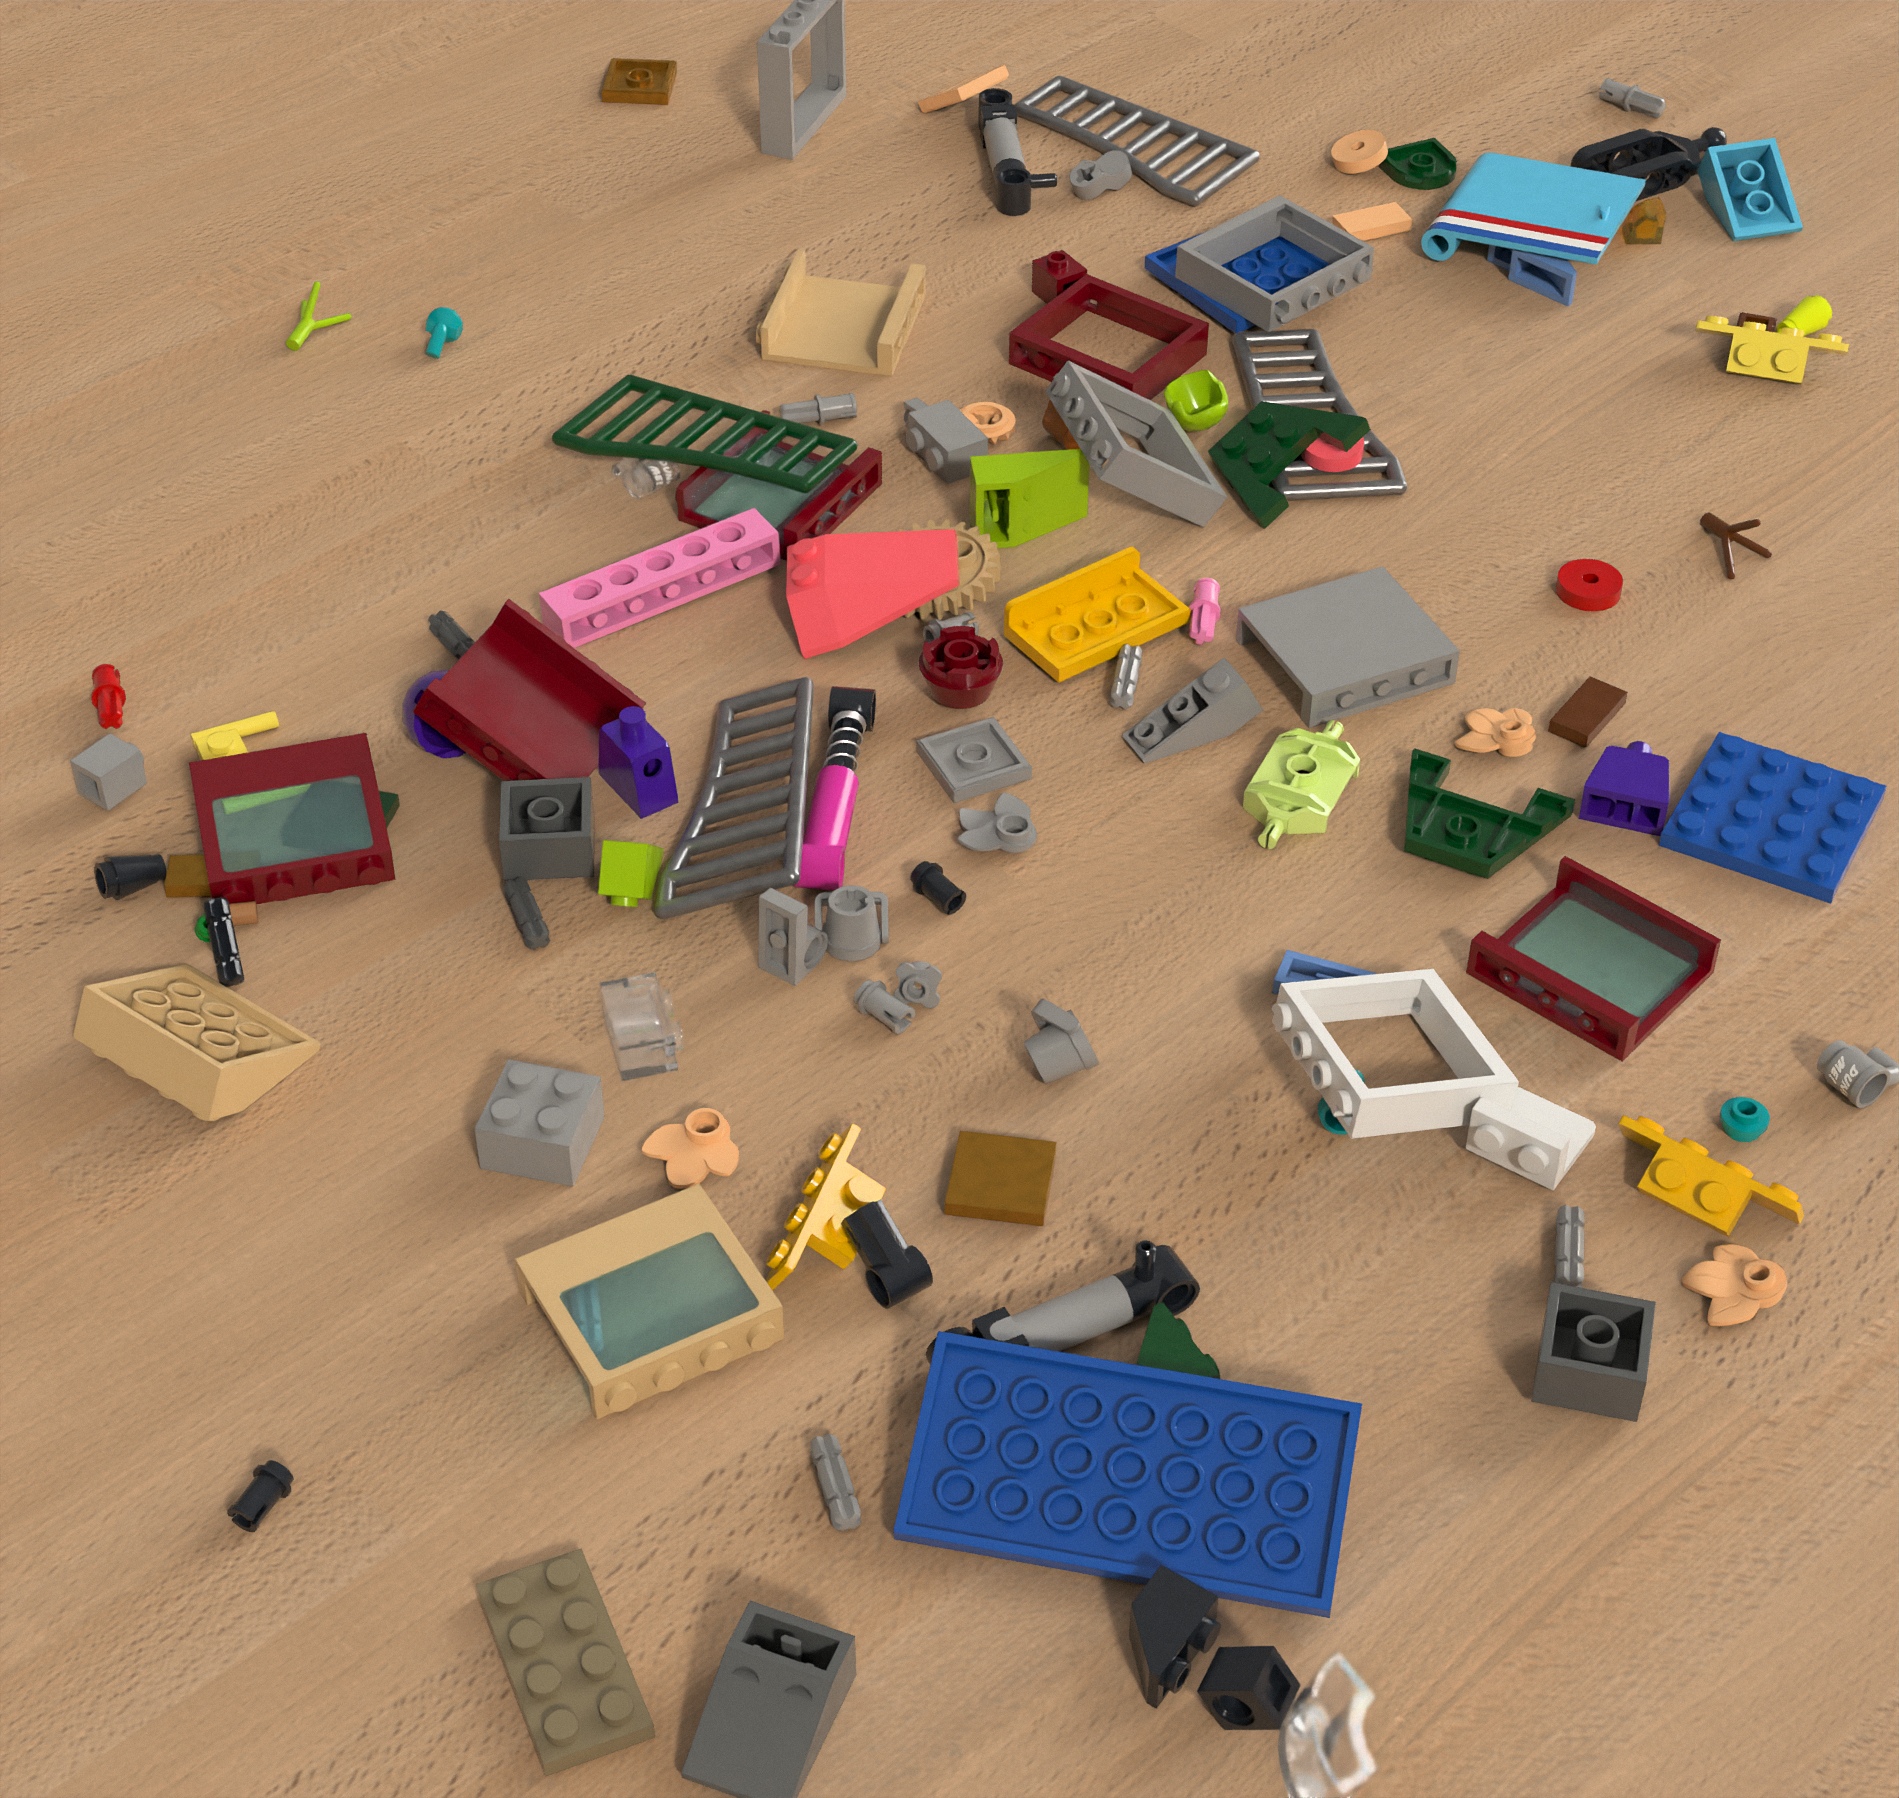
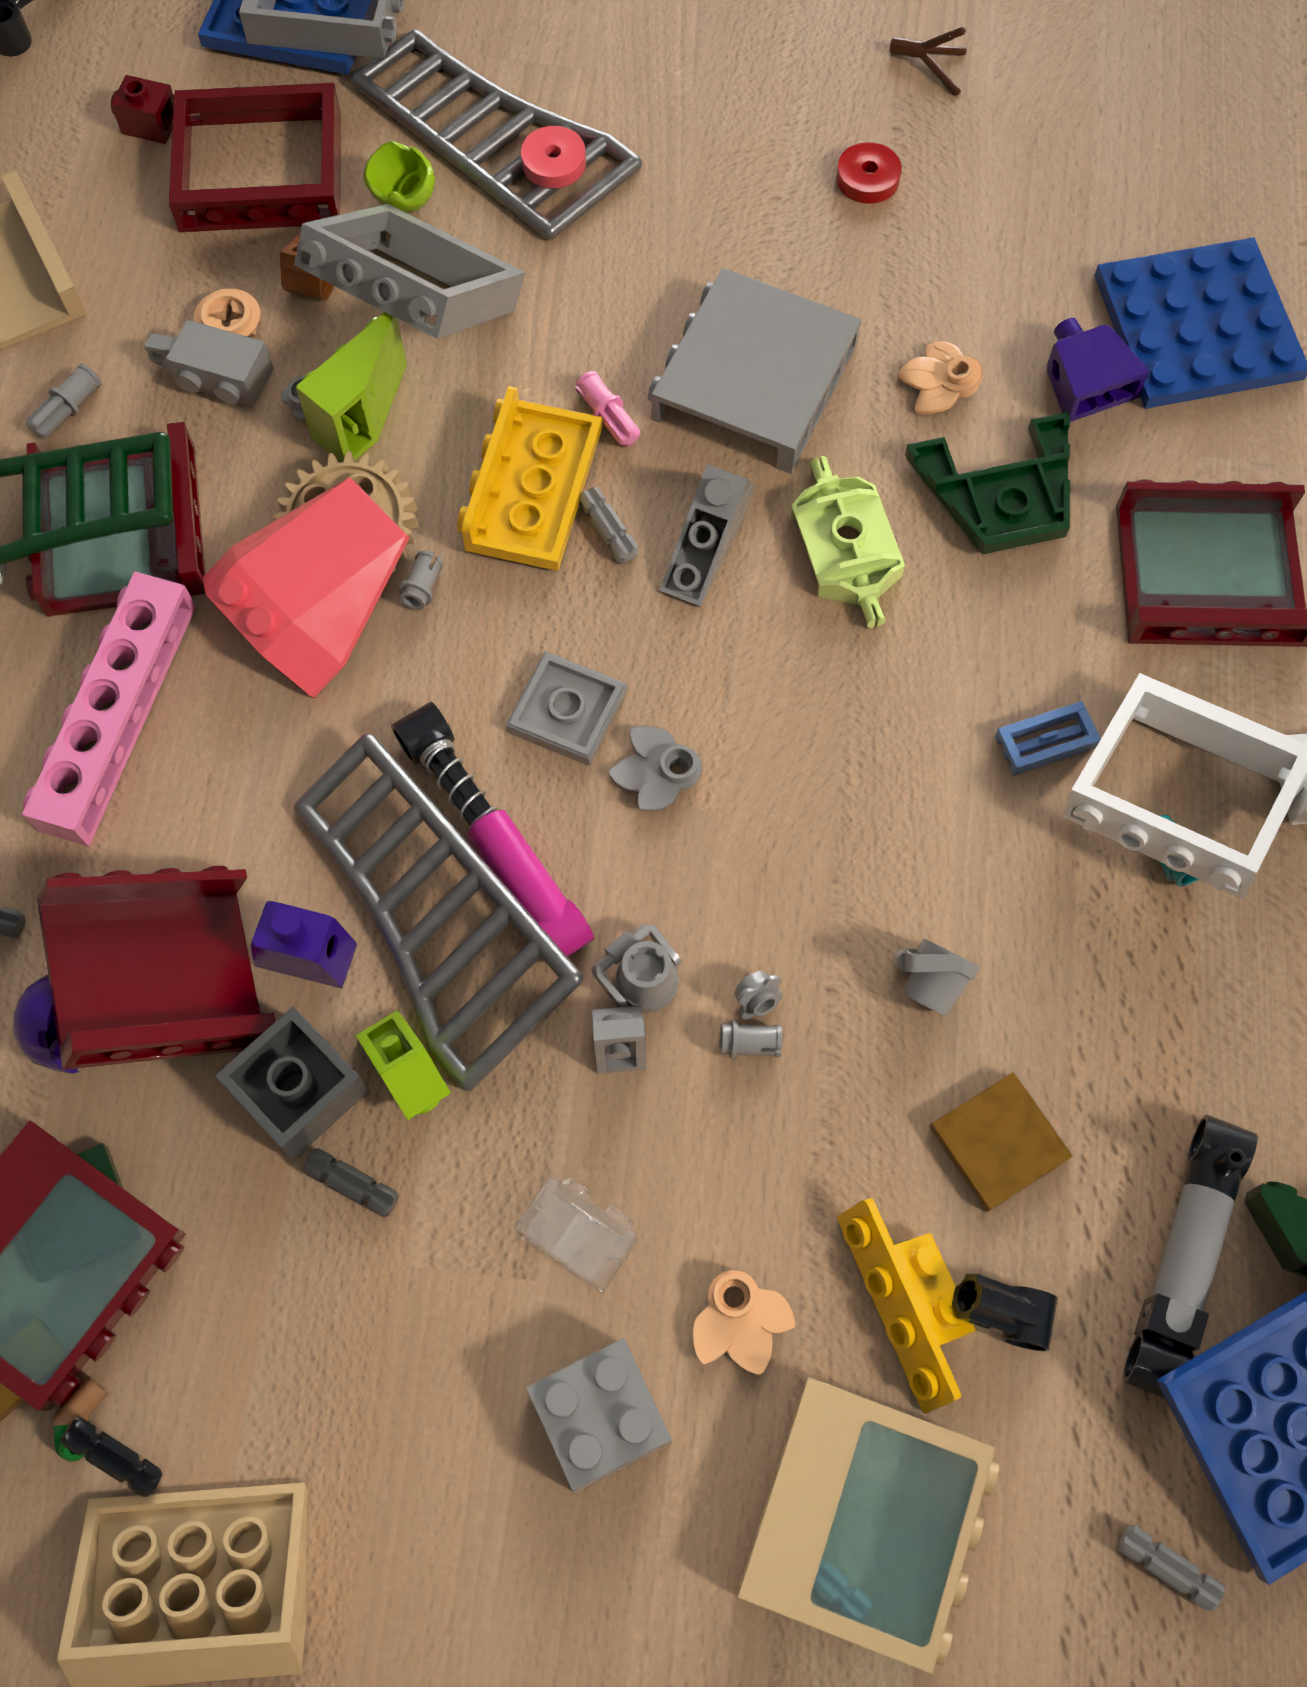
camera: 40 degrees left, 25 degrees up
(929, 880) = (672, 875): black pin -> none
(960, 667) = (481, 621): dark red cone -> none
(1271, 440) = (500, 189): dark green wing -> none
(1587, 711) = (984, 308): reddish brown tile -> none

